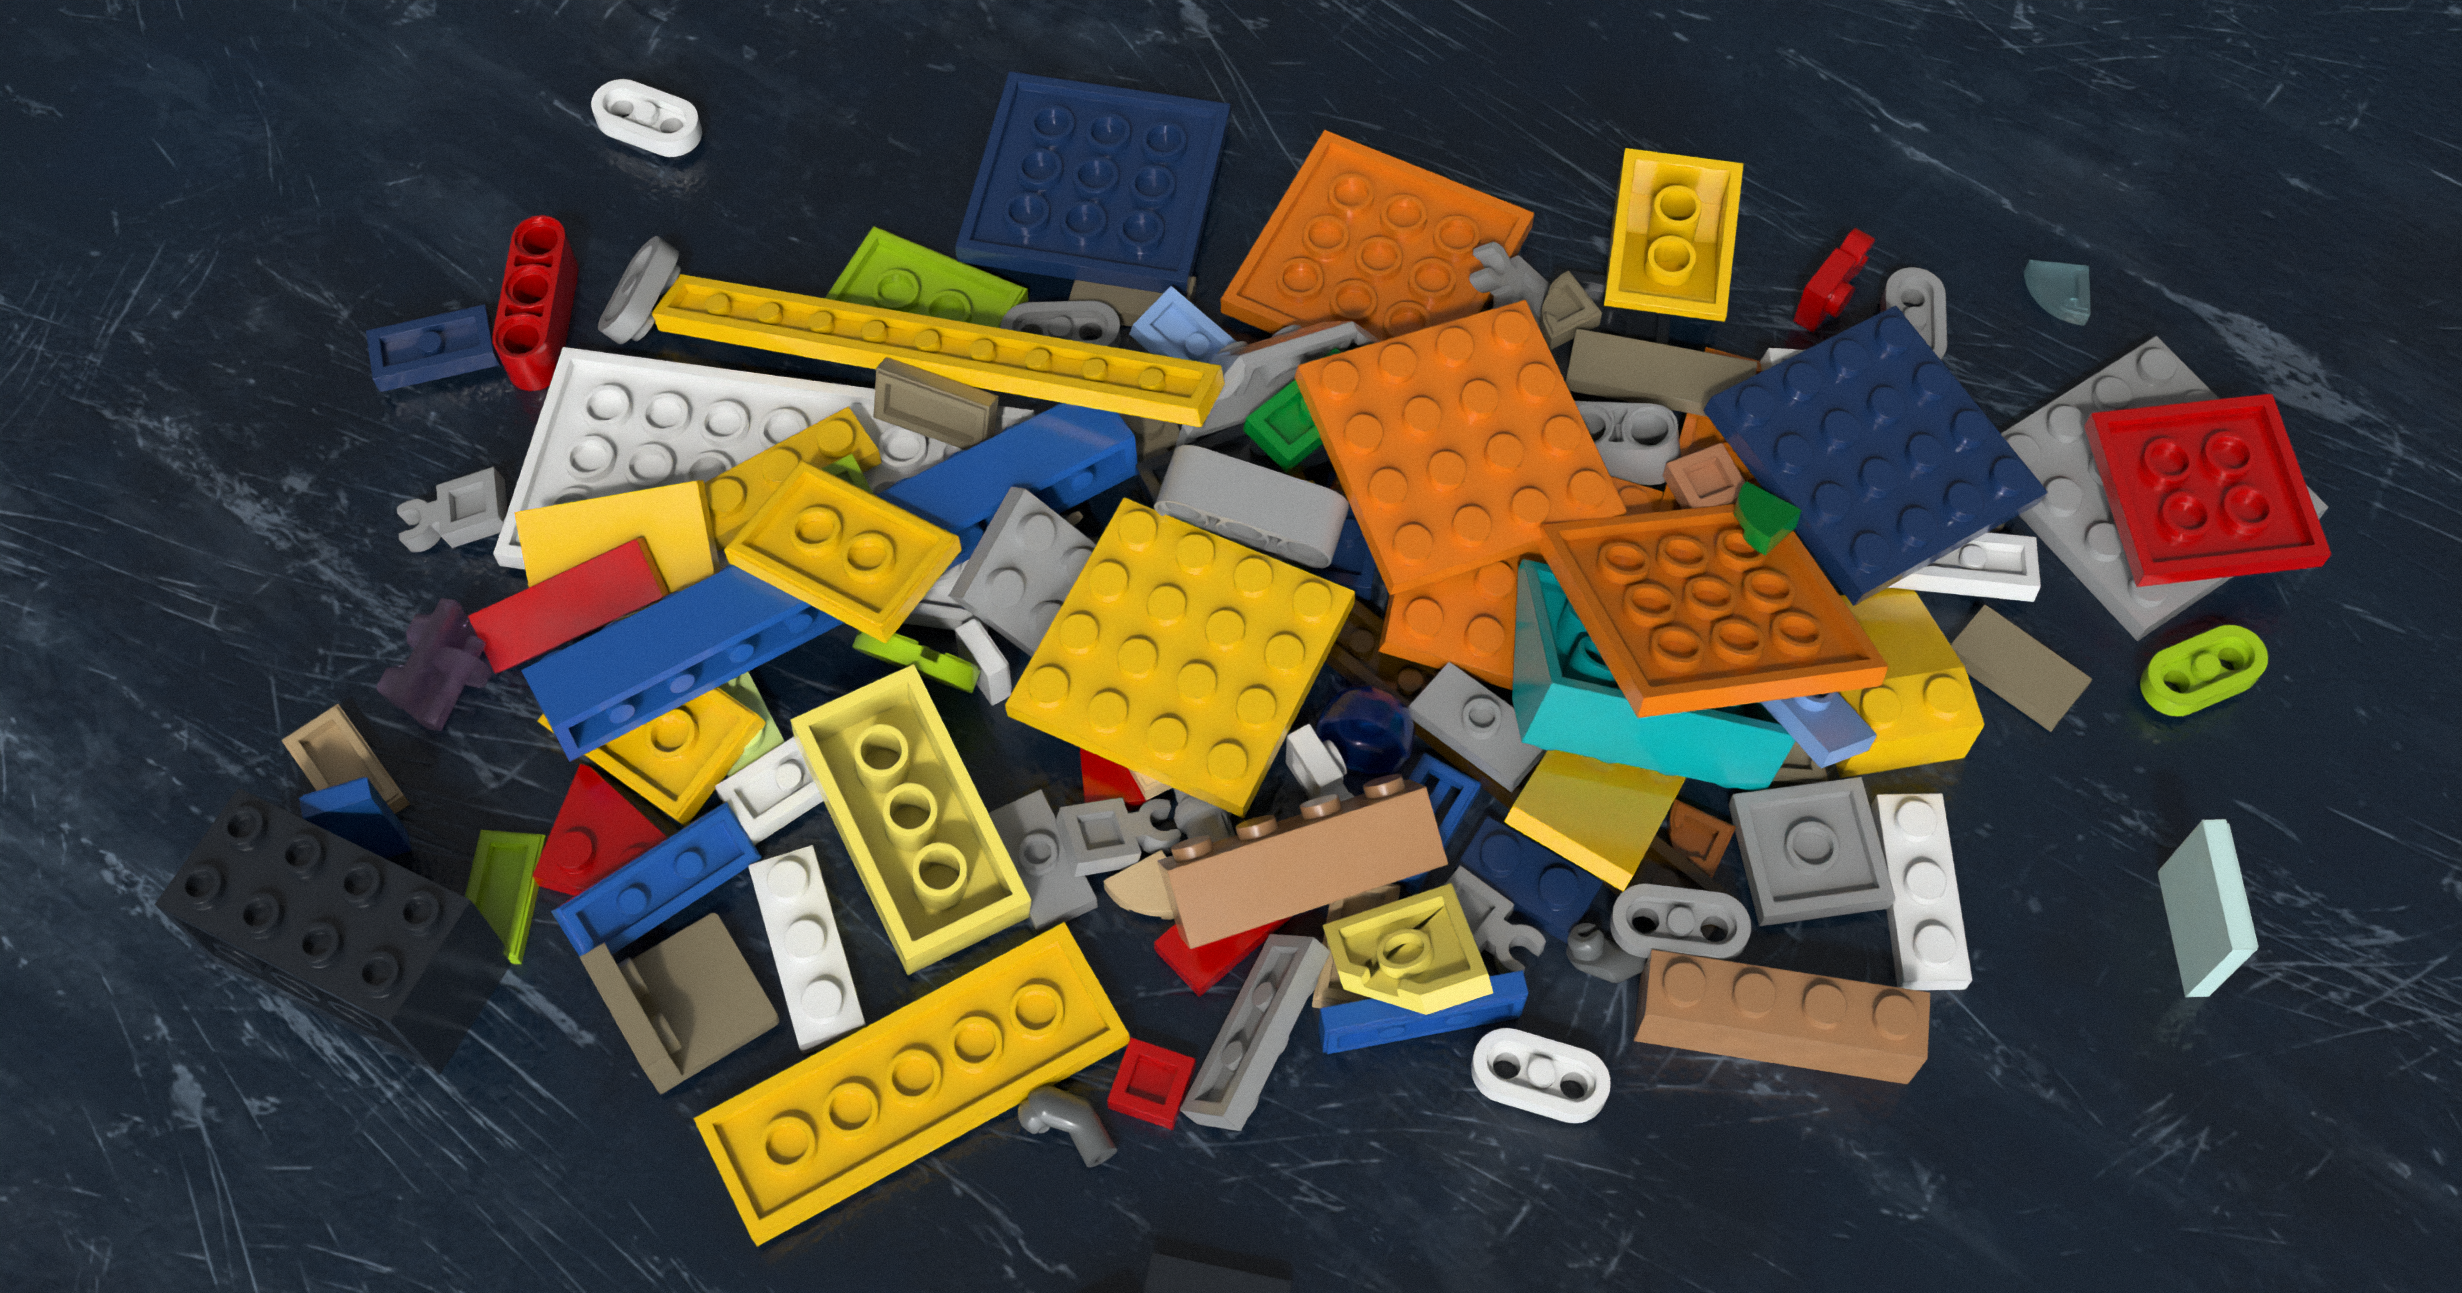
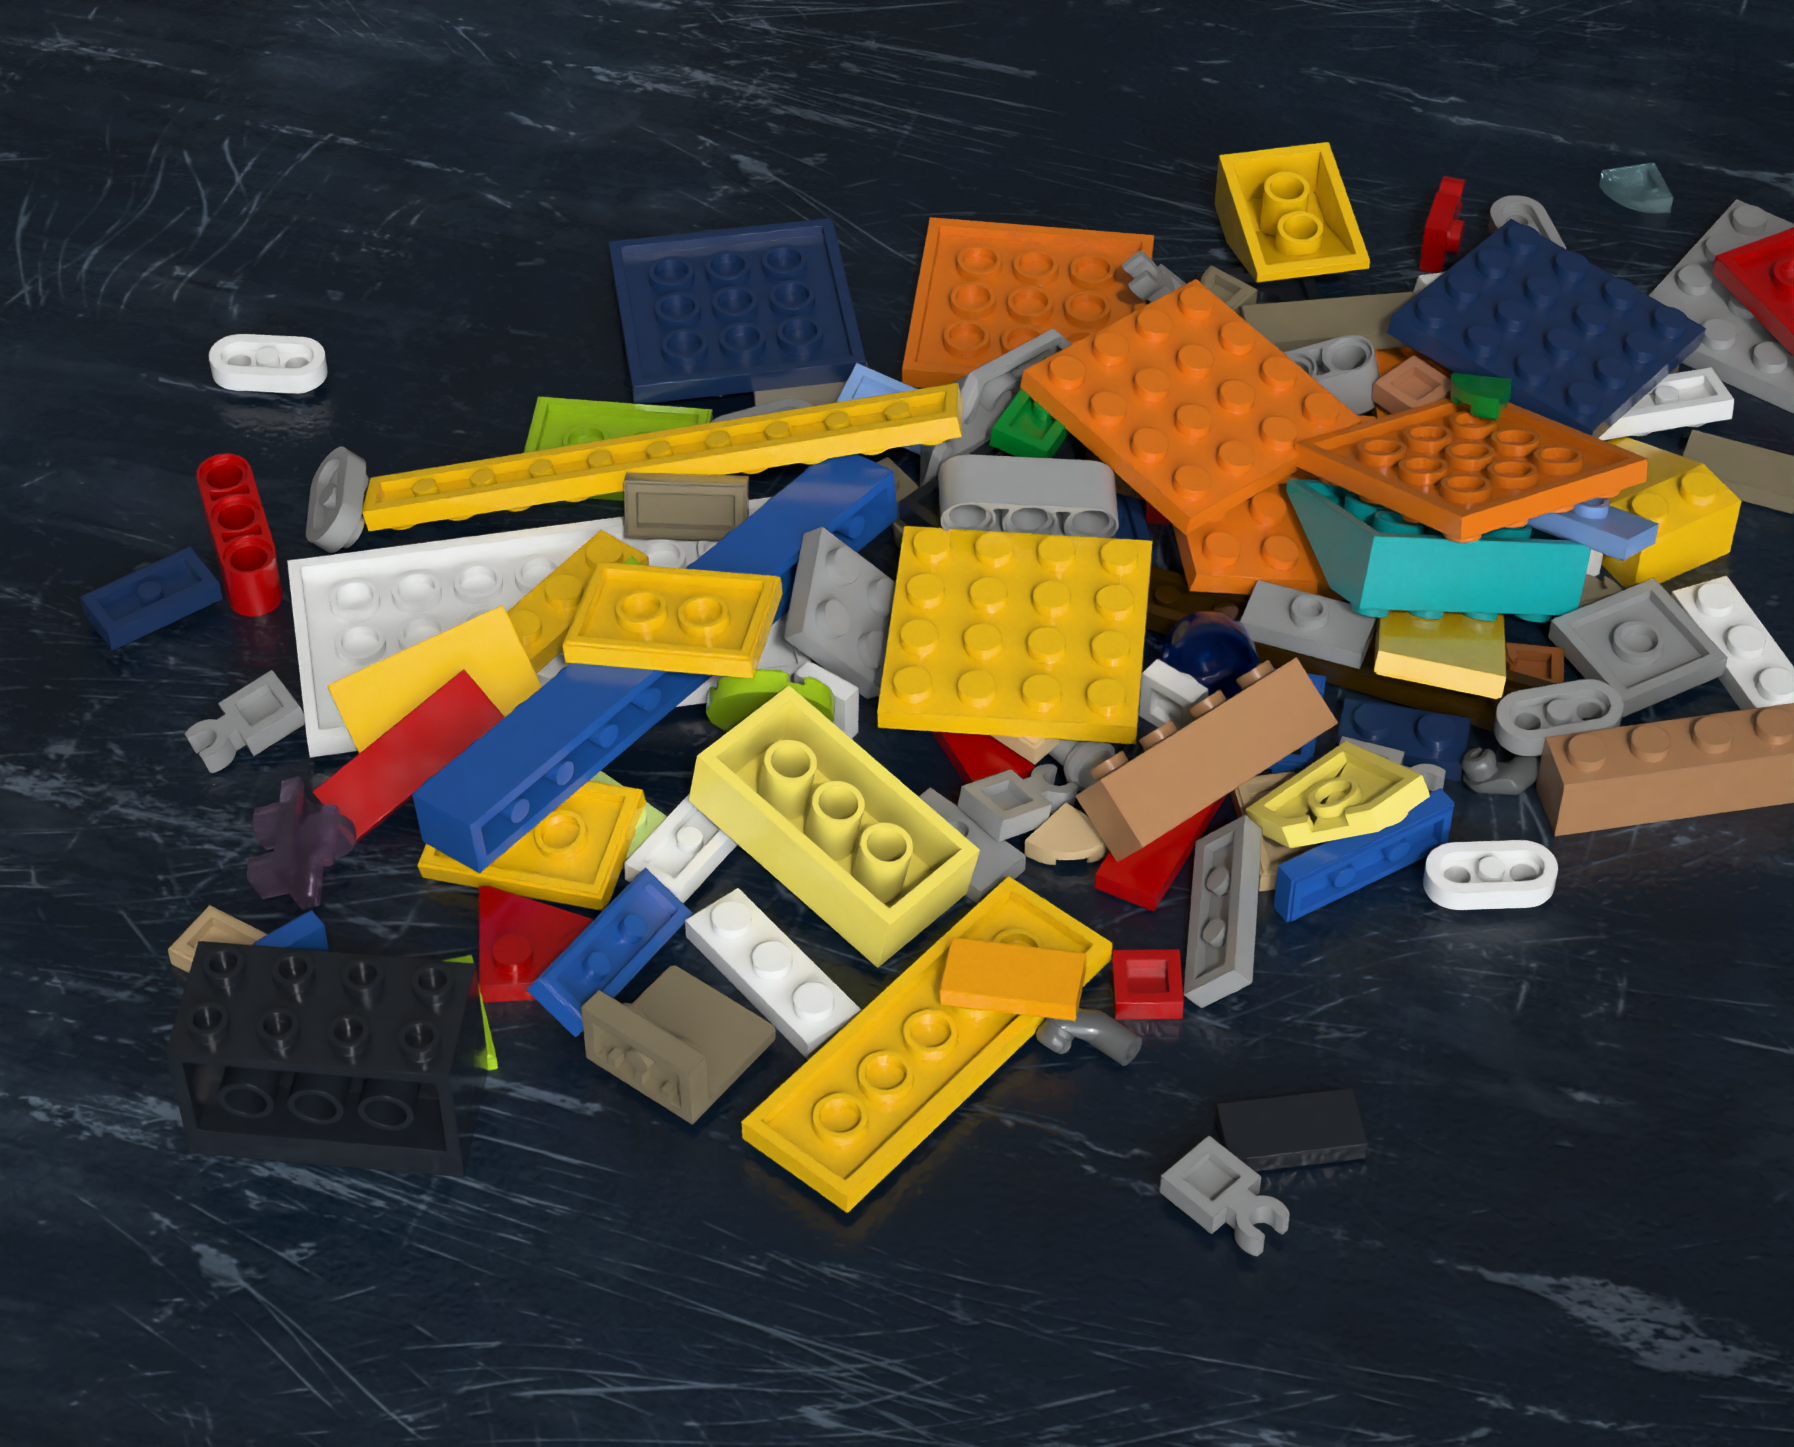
camera: 20 degrees left, 15 degrees down
(1009, 1051) = (1013, 979): none -> light orange tile

